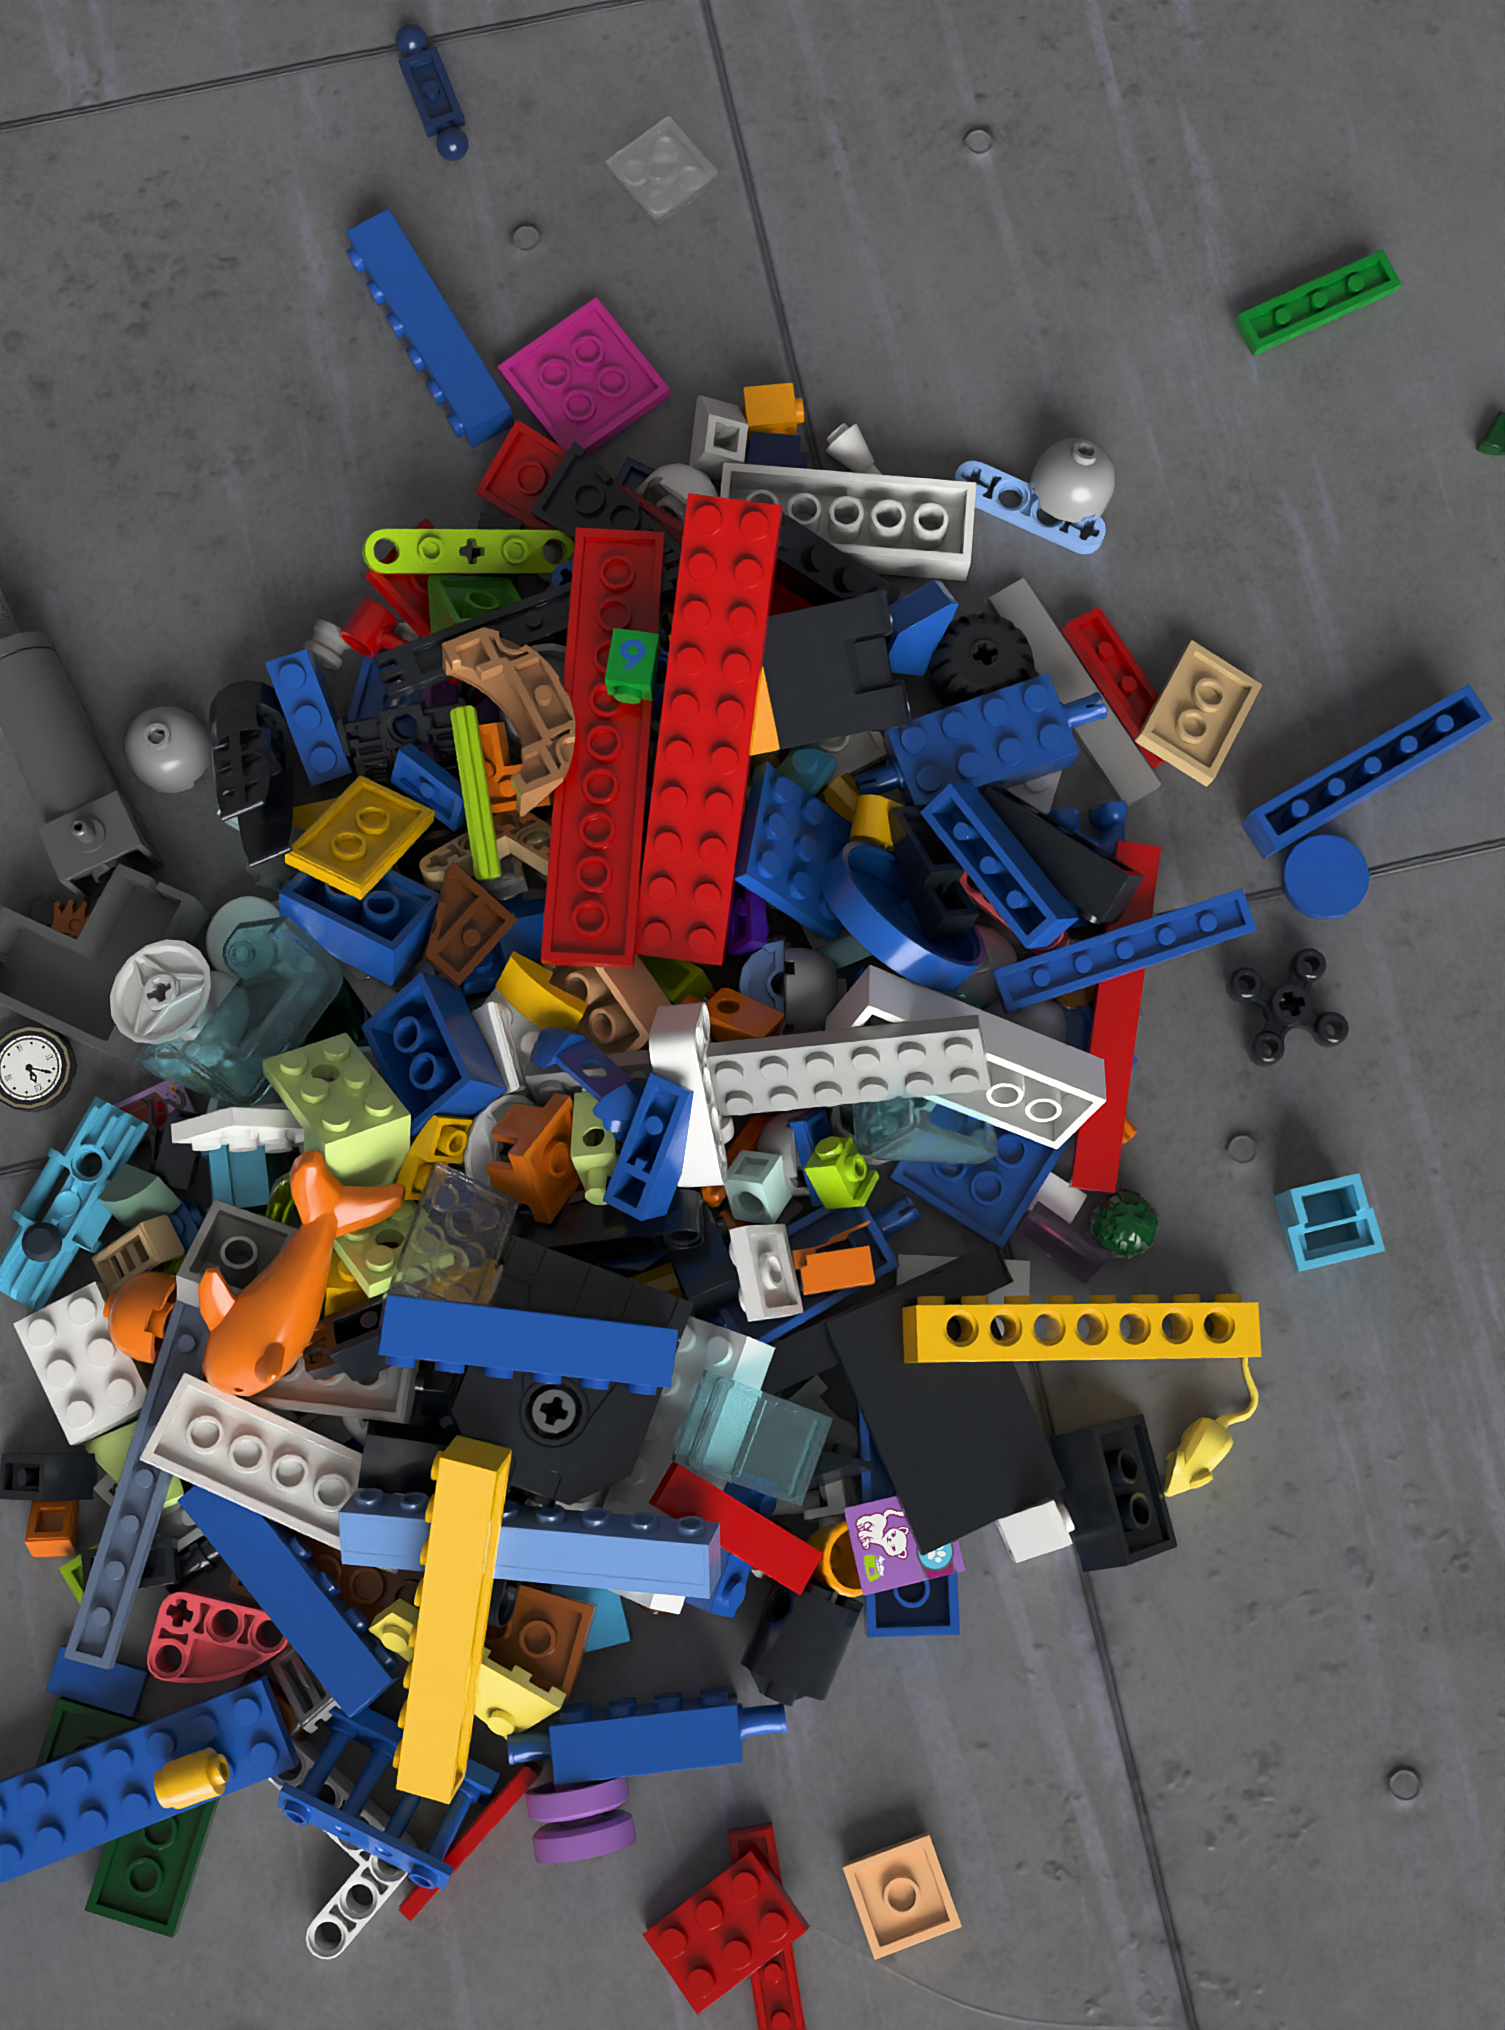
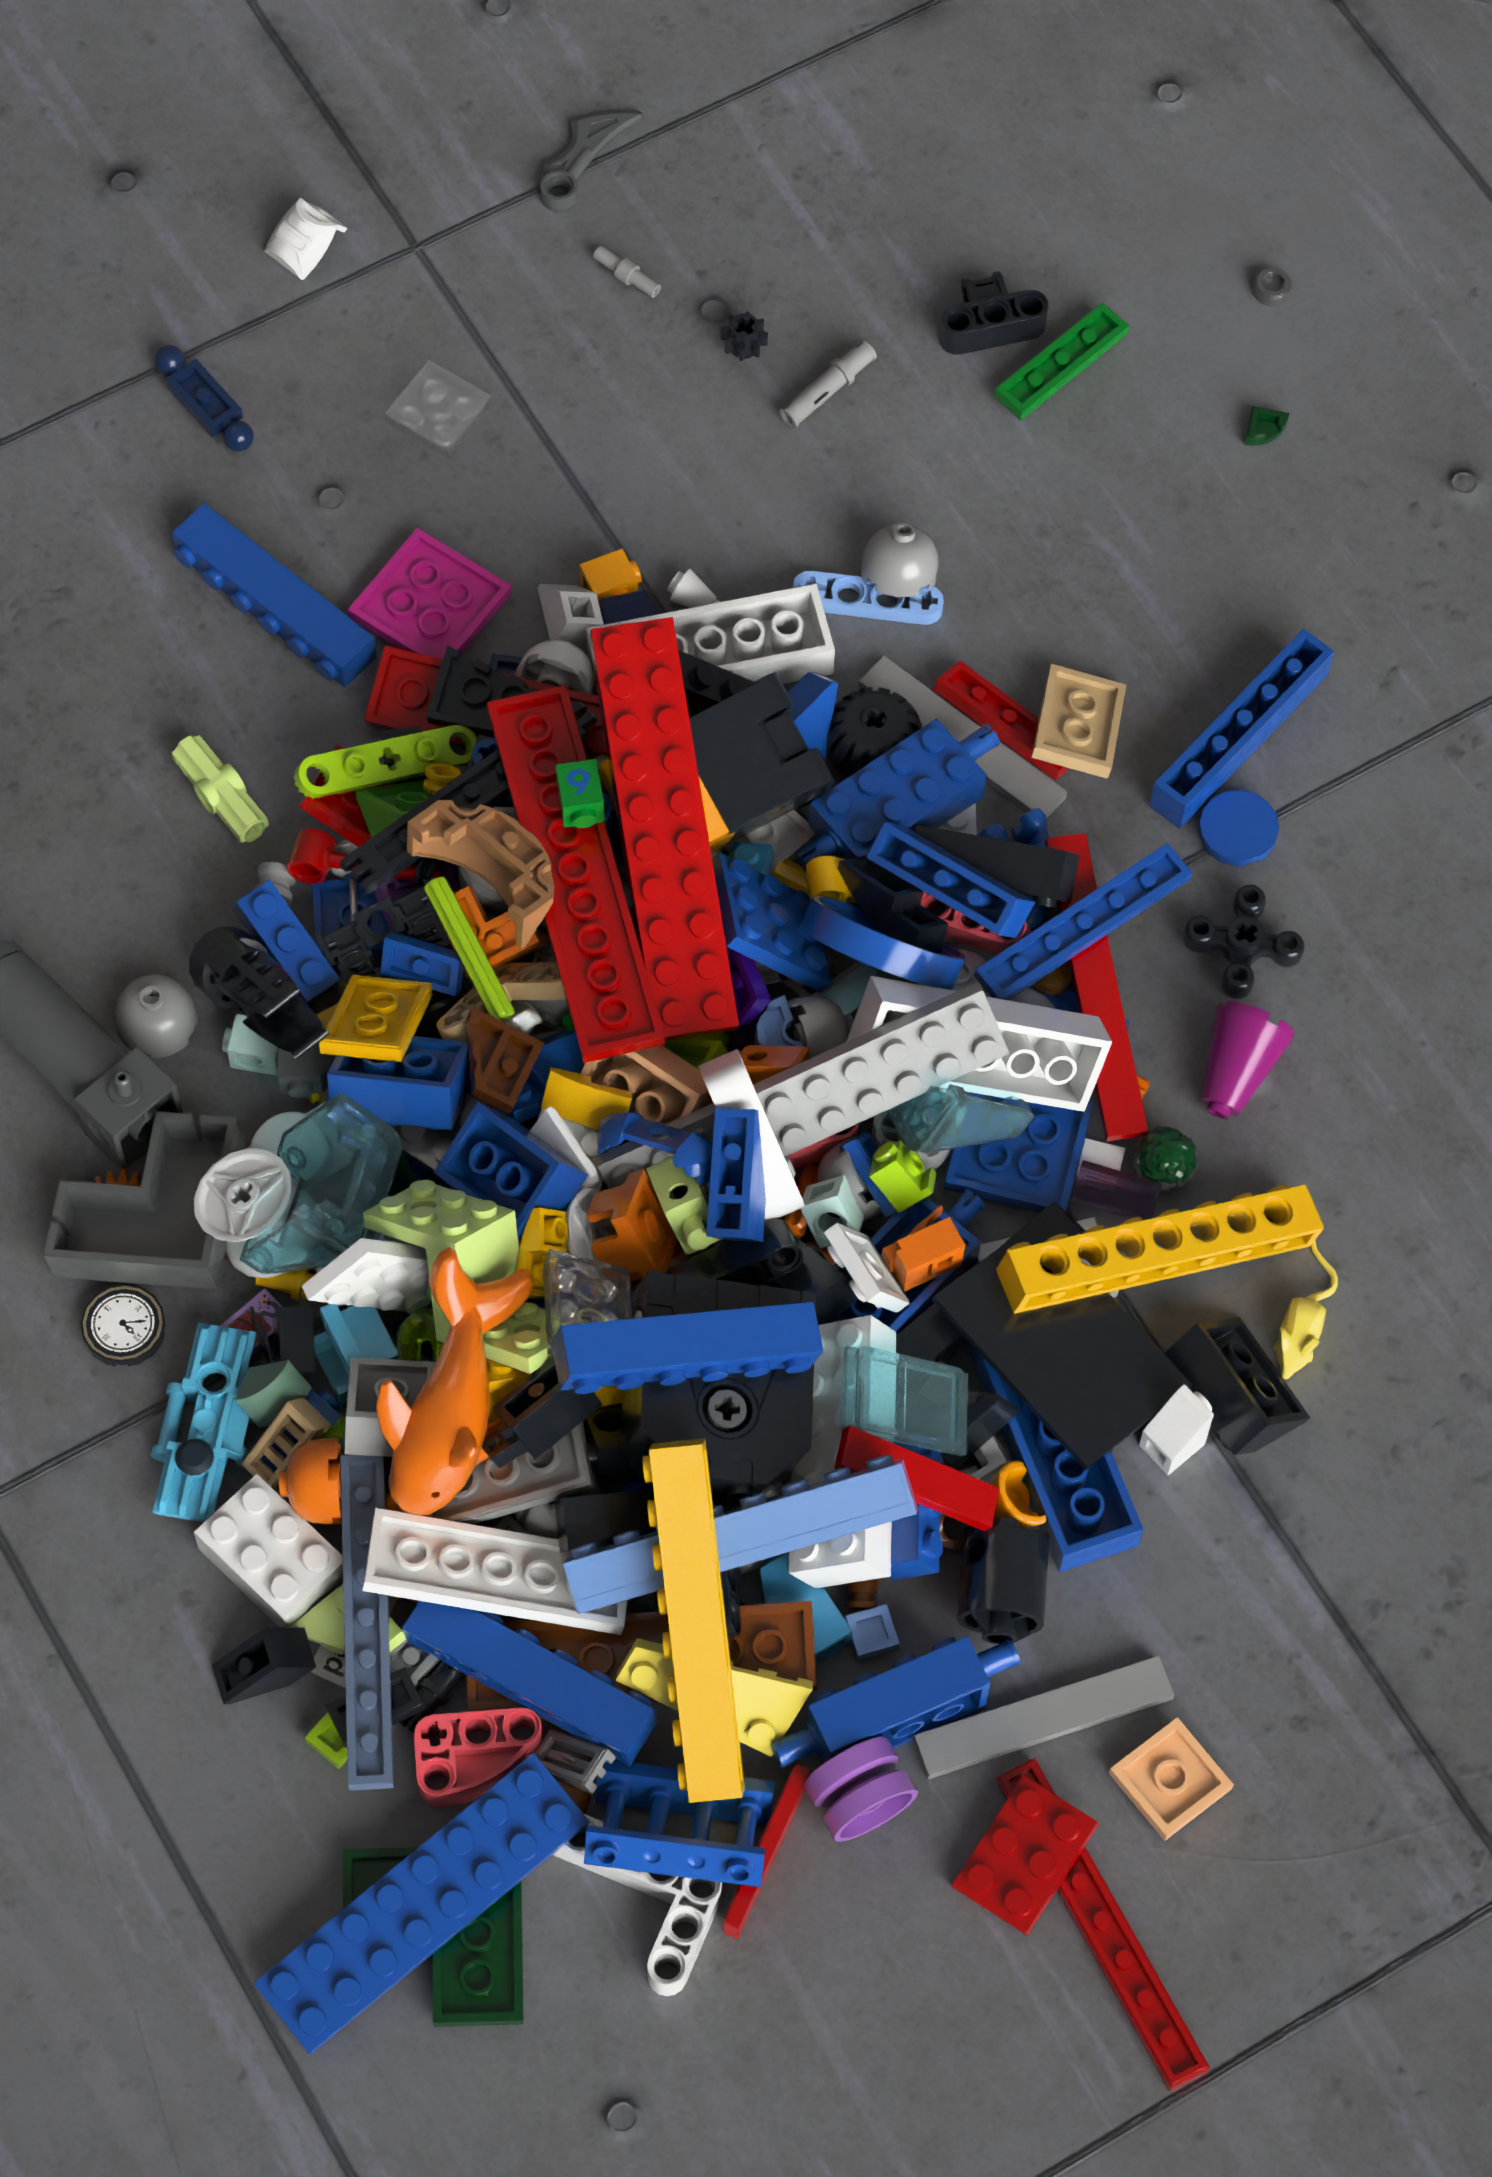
camera: 20 degrees left, 15 degrees down
(53, 1528) = (284, 1714): orange slope -> none
(111, 1689) = (372, 1827): blue tile -> none
(191, 1779) = (502, 1847): yellow brick -> none
(308, 523) = (220, 789): none -> yellowish green piece
(519, 584) = (439, 776): none -> yellow bush
(654, 1638) = (872, 1632): none -> light blue plate
(803, 1783) = (1043, 1717): none -> light grey tile
(887, 1551) = (1056, 1477): sticker -> none
(903, 74) = (627, 271): none -> light grey bar
(998, 180) = (744, 336): none -> black gear
(1080, 252) = (840, 373): none -> light grey pin
(1238, 1138) = (1240, 1056): none -> magenta cone
(1265, 215) = (989, 302): none -> black piece
(1328, 1223) = (1341, 1101): medium azure plate -> none

